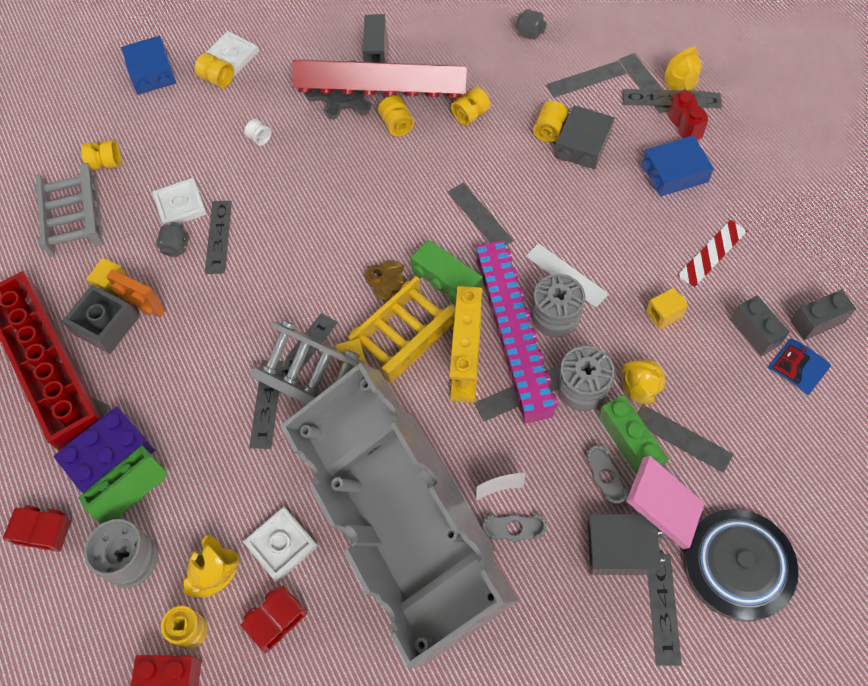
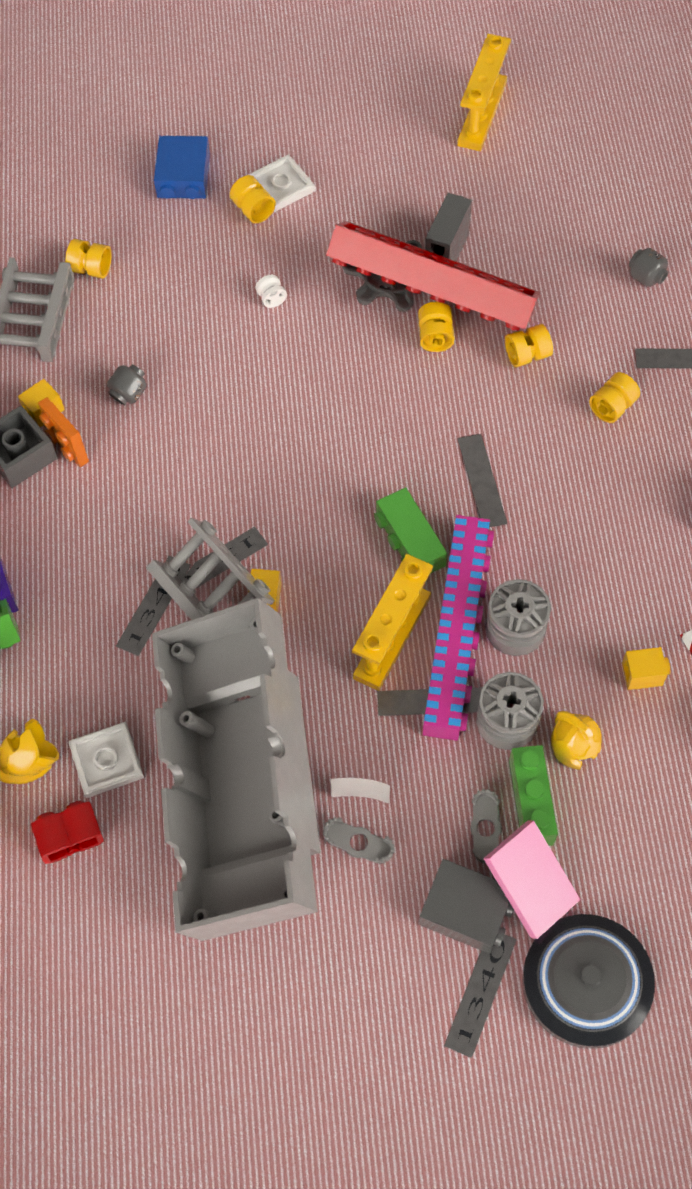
camera: 20 degrees right, 0 degrees up
(179, 202) = (152, 343): white tile -> none
(218, 237) = (178, 398): flat silver sticker -> none
(390, 280) = (344, 519): pearl gold plate -> none
(409, 350) = (333, 605): yellow fence -> none
(554, 265) = (544, 575): white sticker -> none
(584, 137) = (646, 430): dark grey brick -> none
(685, 439) = (594, 822): flat silver sticker -> none

